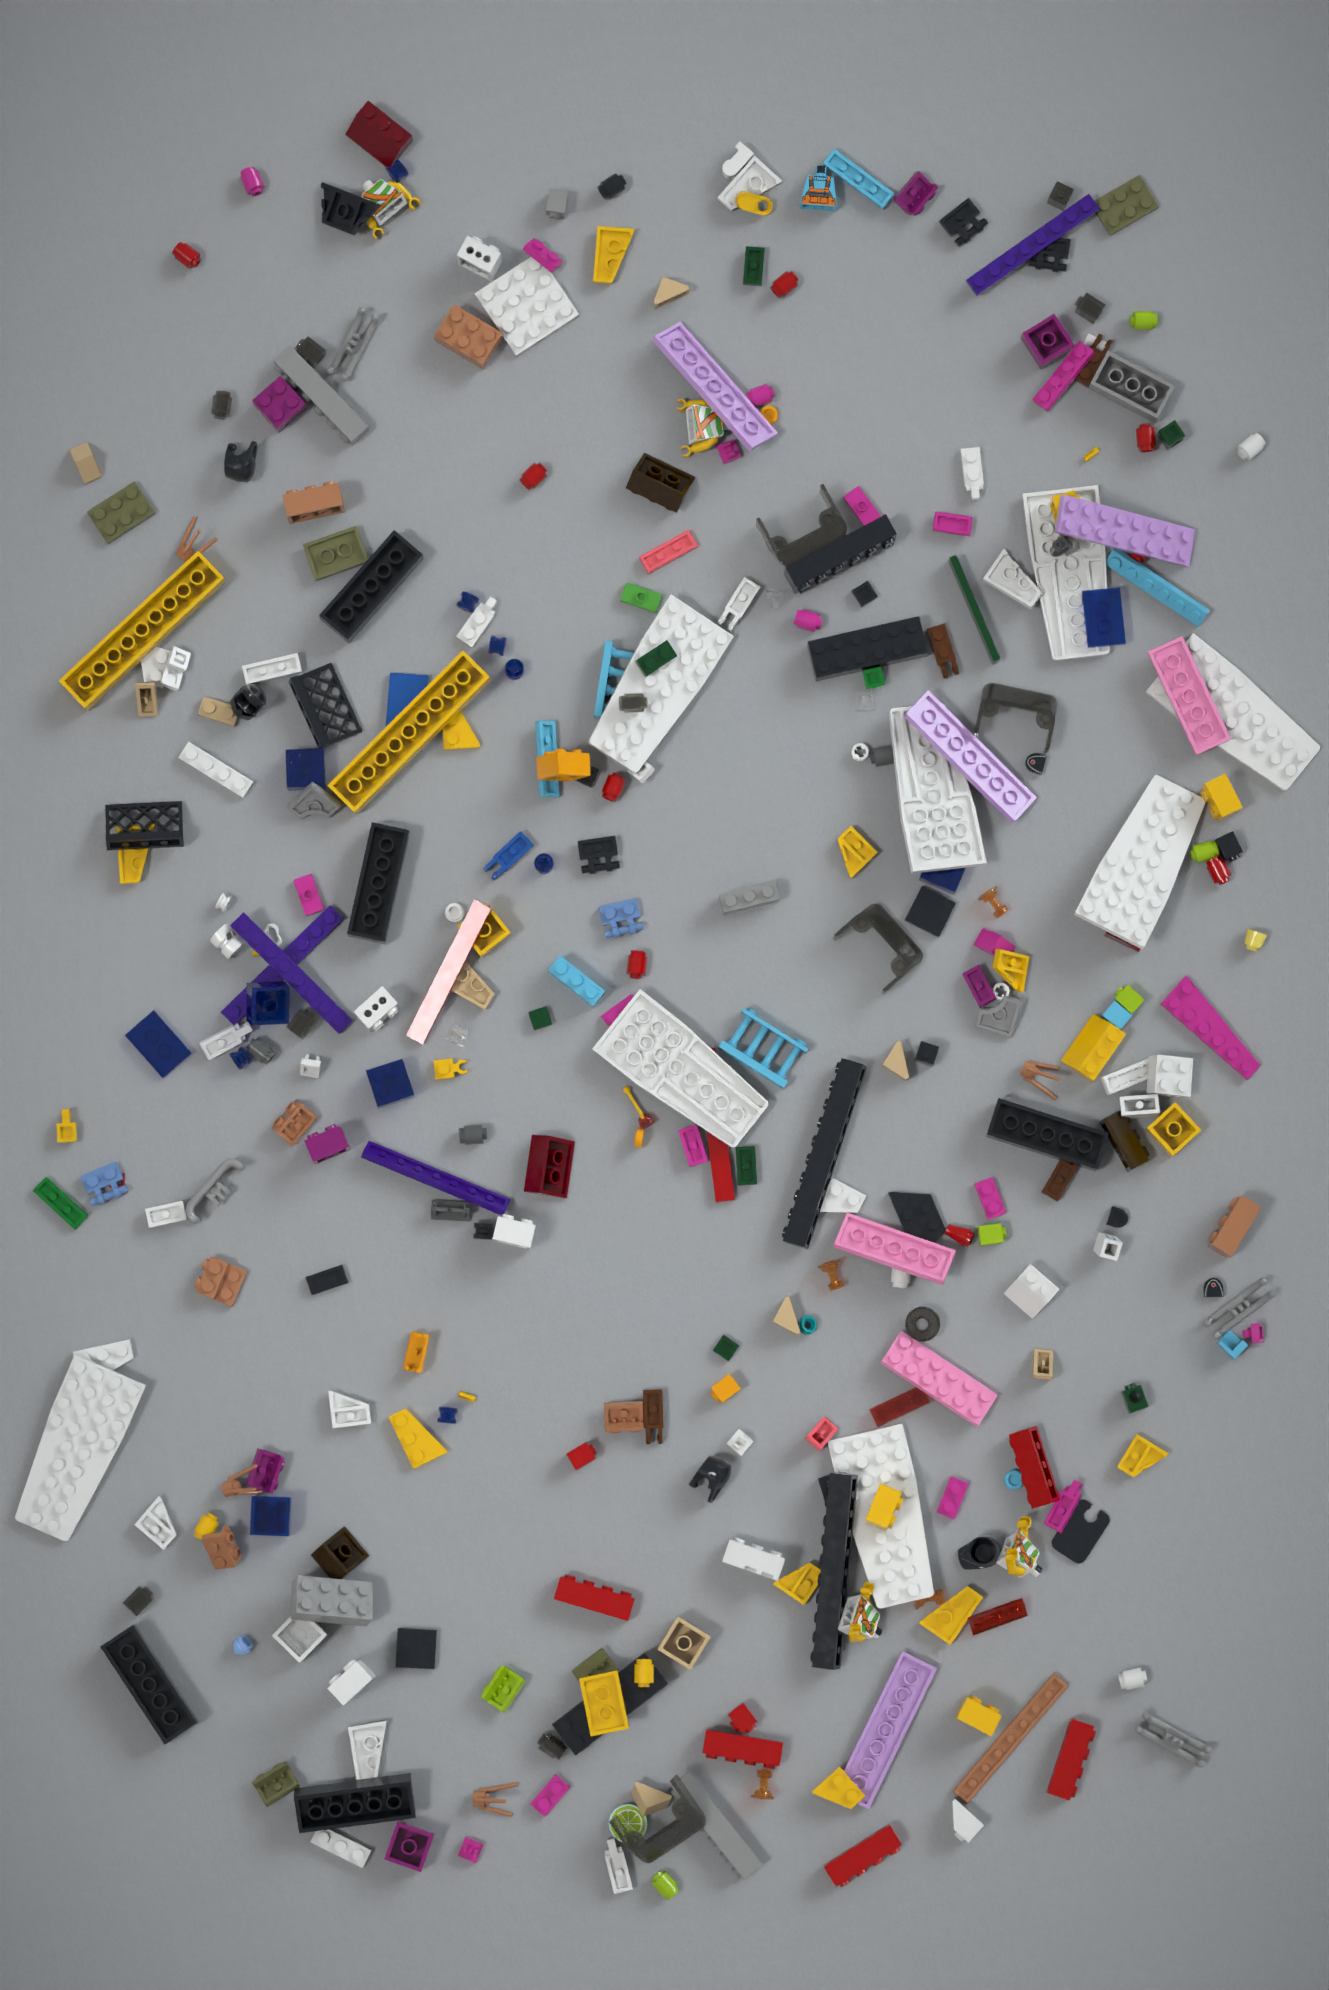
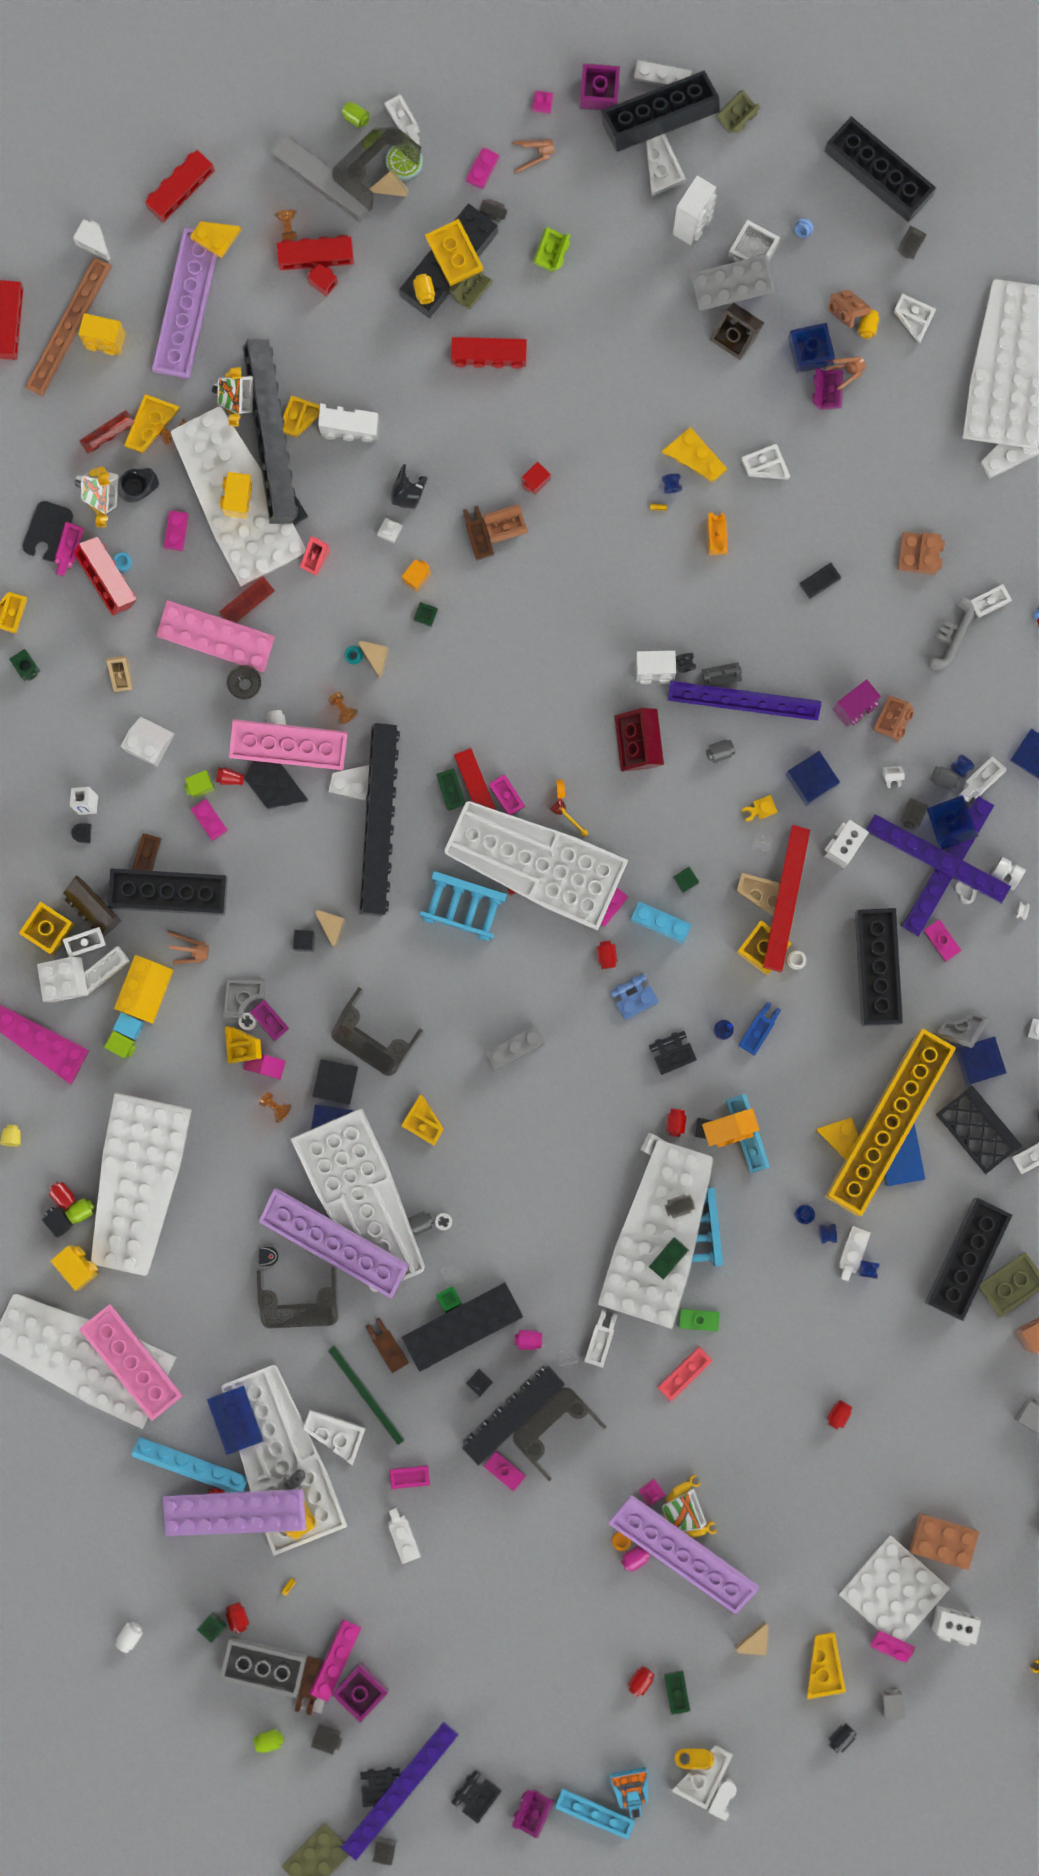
camera: 170 degrees right, 0 degrees up
(416, 1648) = (642, 266): black tile -> none
(660, 482) = (711, 1442): dark brown slope -> none
(683, 1642) = (394, 331): tan brick -> none

